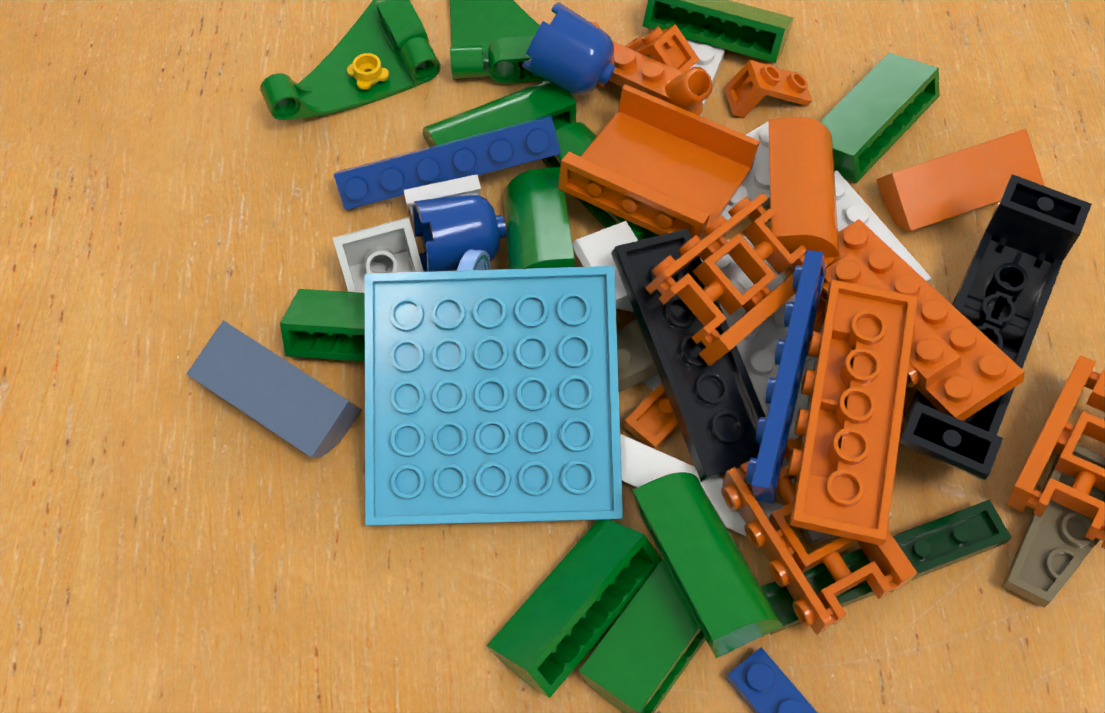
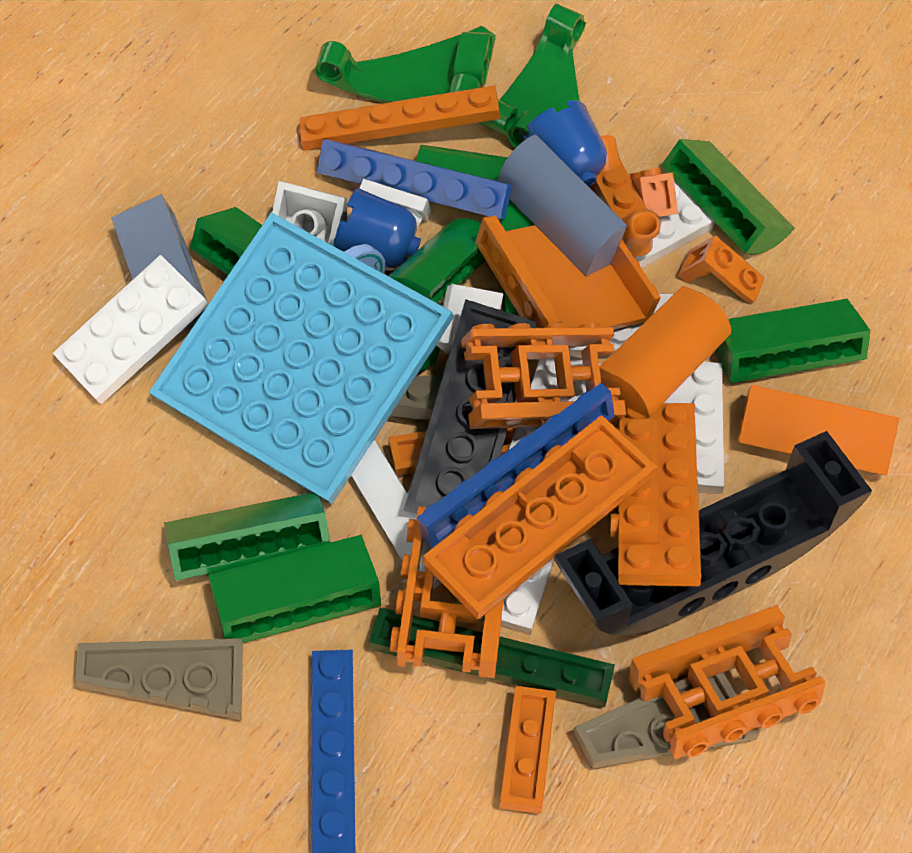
camera: 30 degrees right, 5 degrees down
(299, 474) = (131, 329): none -> white plate
(367, 70) = (417, 80): yellow plate -> none
(383, 114) = (400, 117): none -> orange plate
(611, 108) = (562, 206): none -> sand blue brick
(705, 562) = (351, 556): green brick -> none
(985, 631) = (527, 750): none -> orange plate

